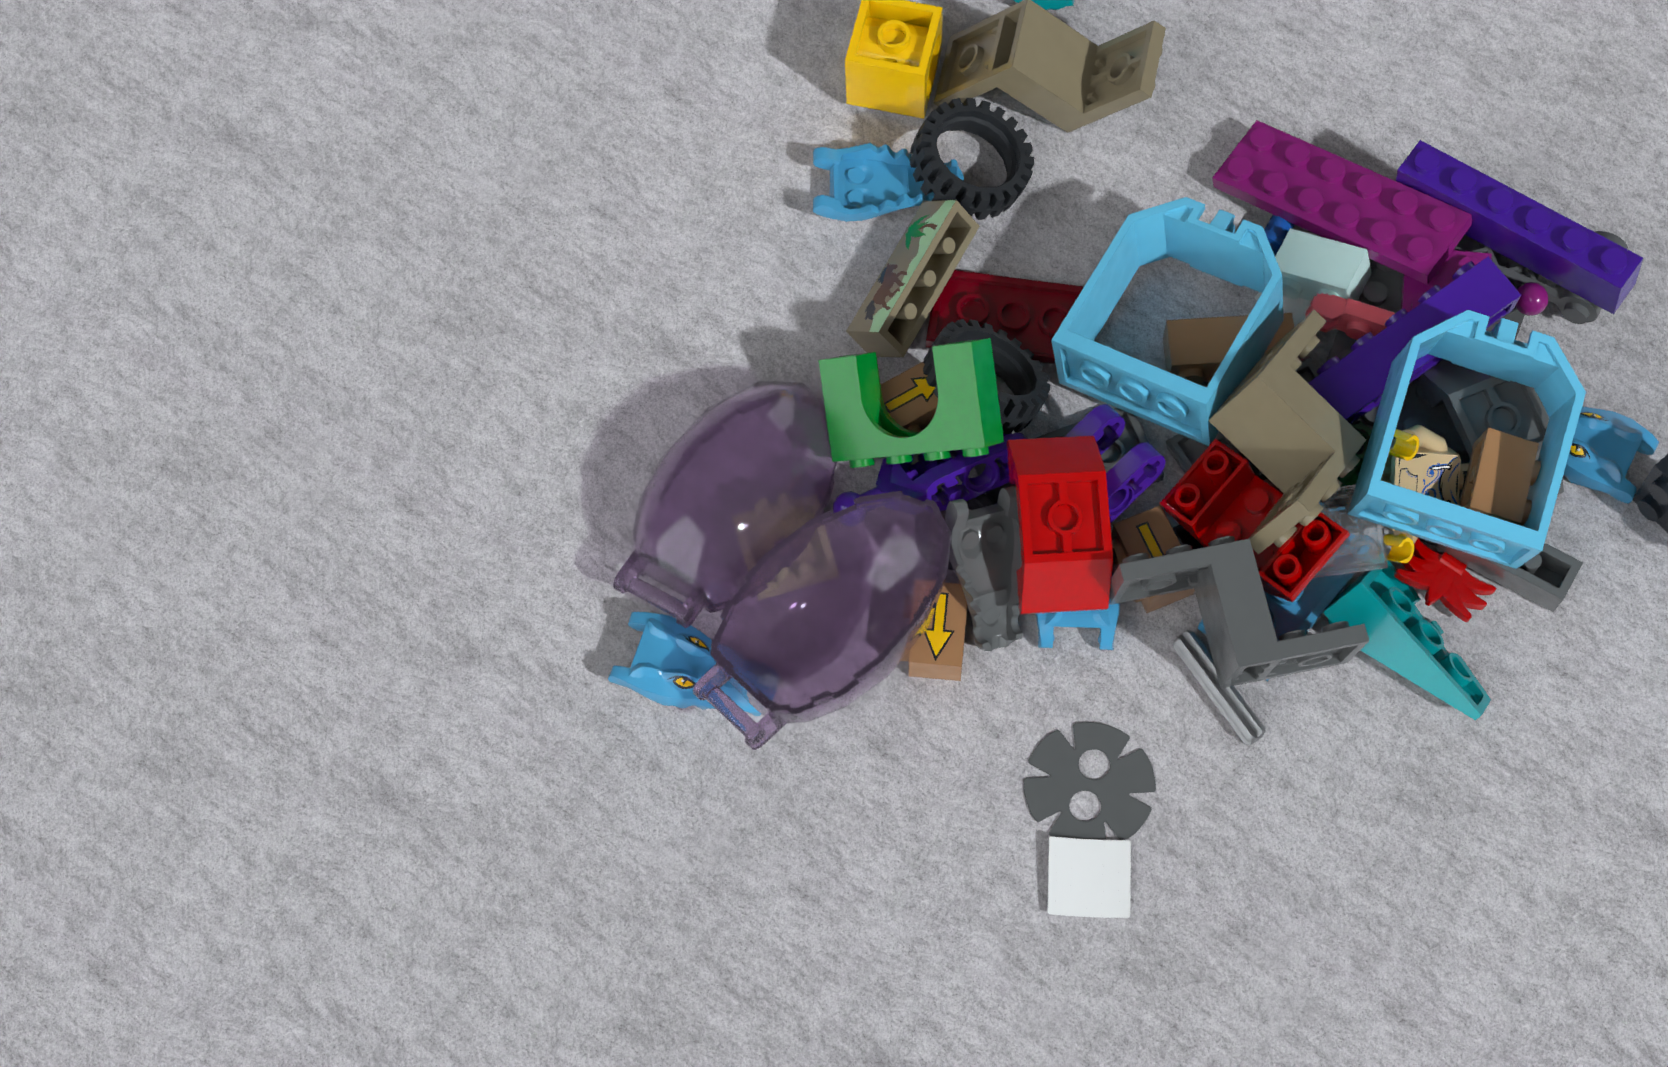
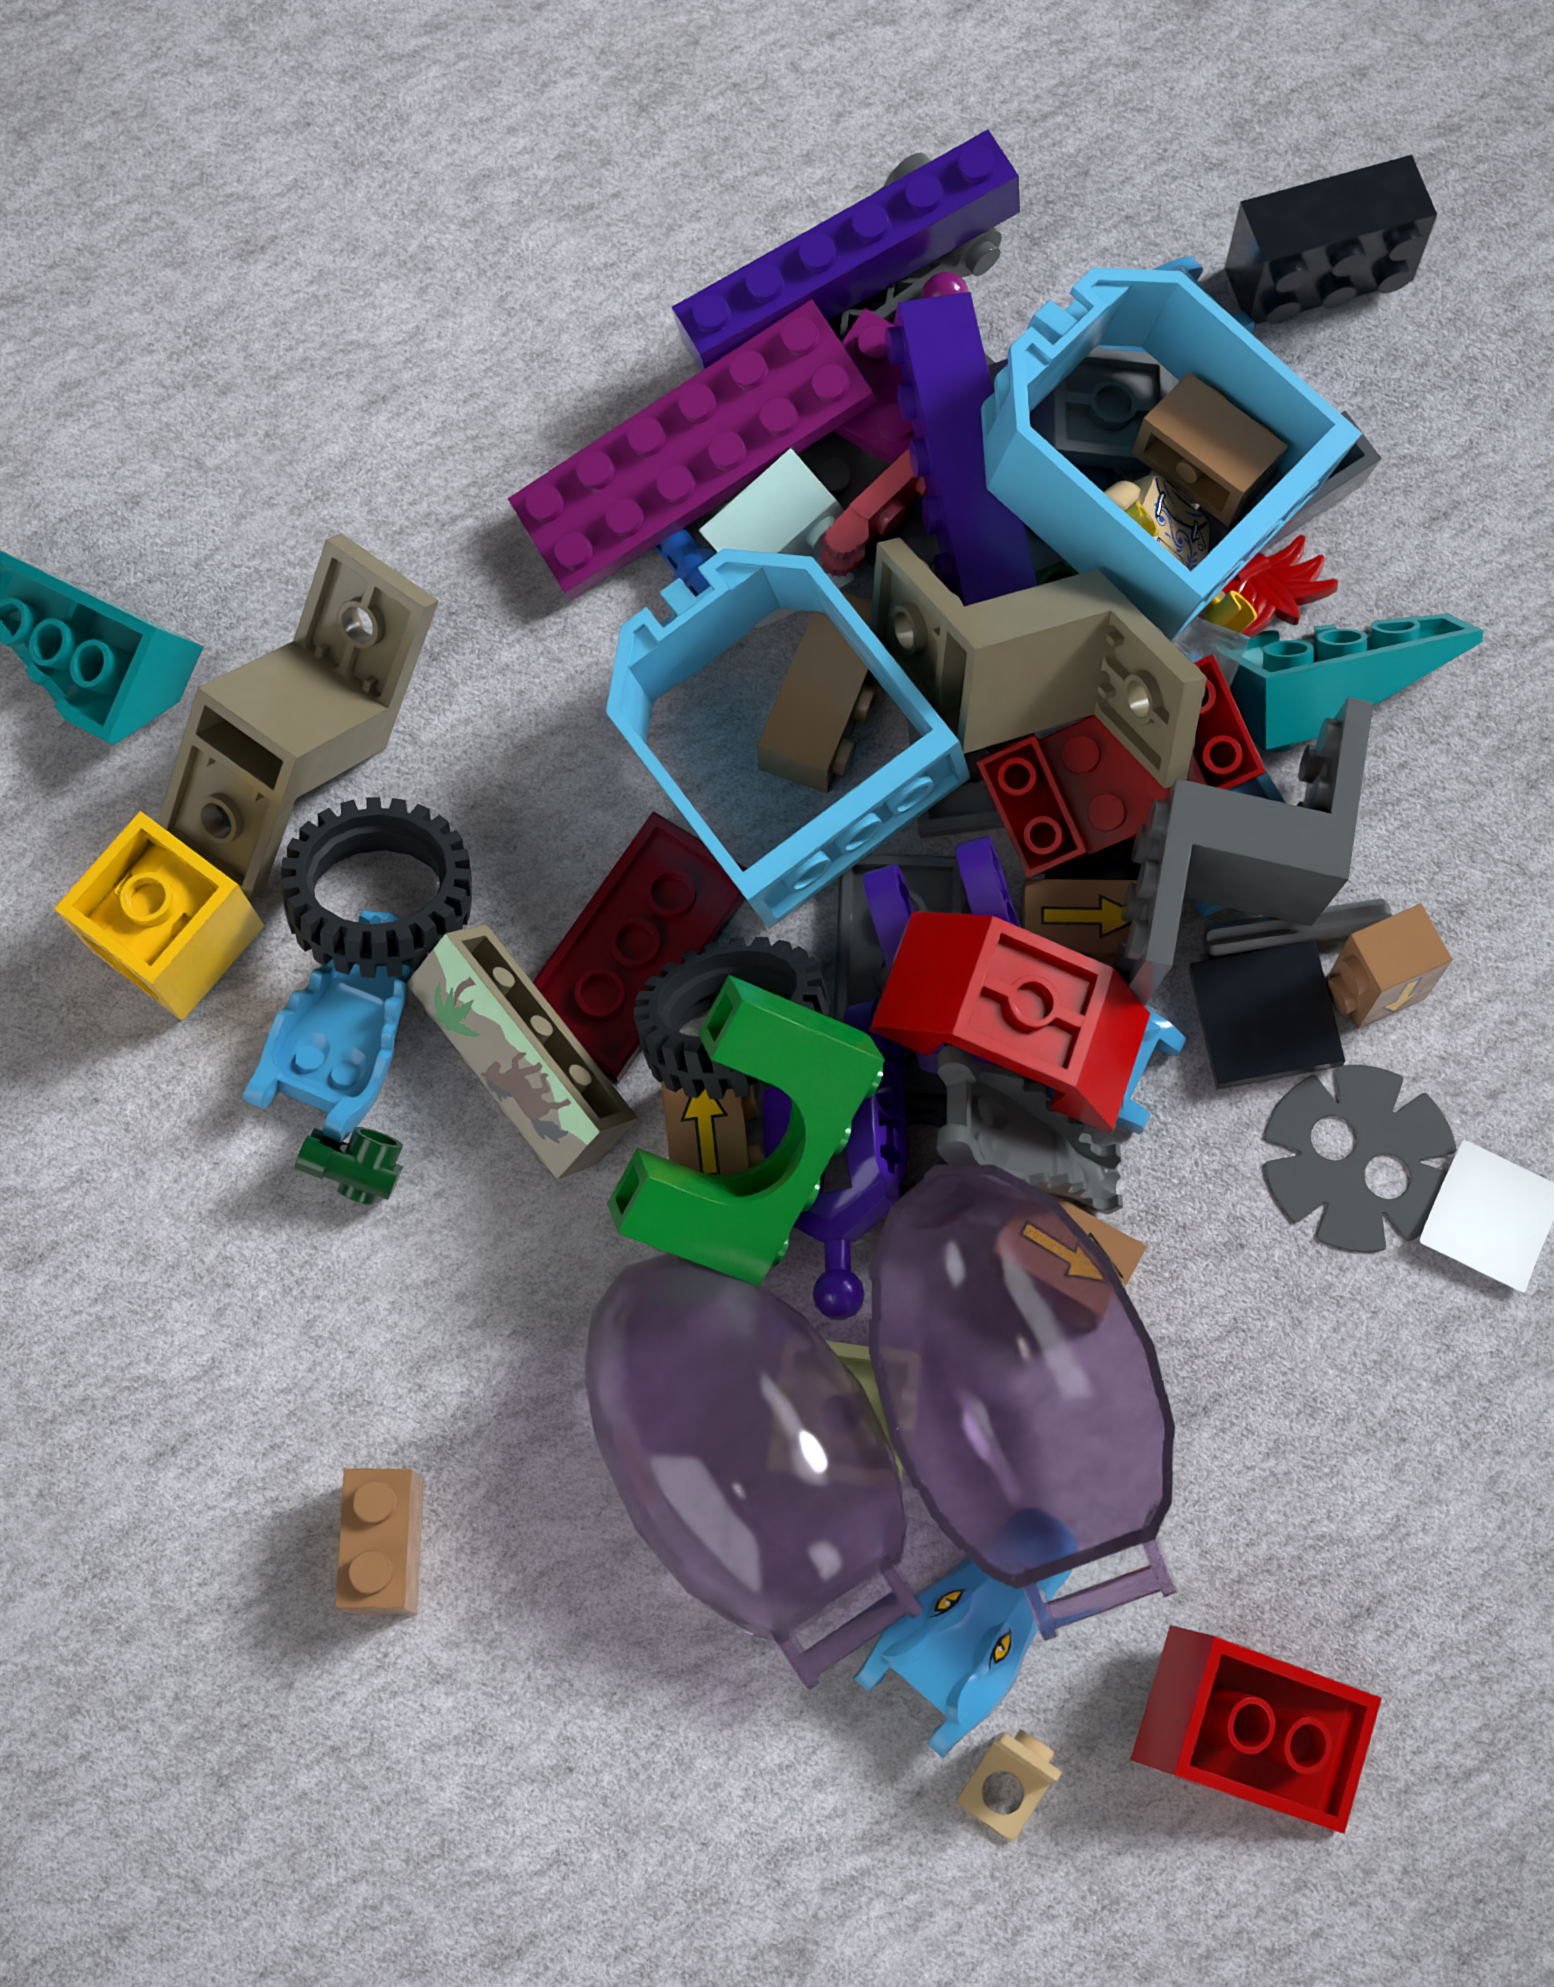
camera: 65 degrees left, 5 degrees up
(597, 334) = (380, 1541): none -> medium nougat brick
(629, 722) = (1026, 1760): none -> tan bracket
(702, 851) = (1256, 1728): none -> red slope
(805, 228) = (362, 1167): none -> dark green plate
(1152, 690) = (1266, 1015): none -> black tile
(1211, 738) = (1388, 967): none -> medium nougat brick

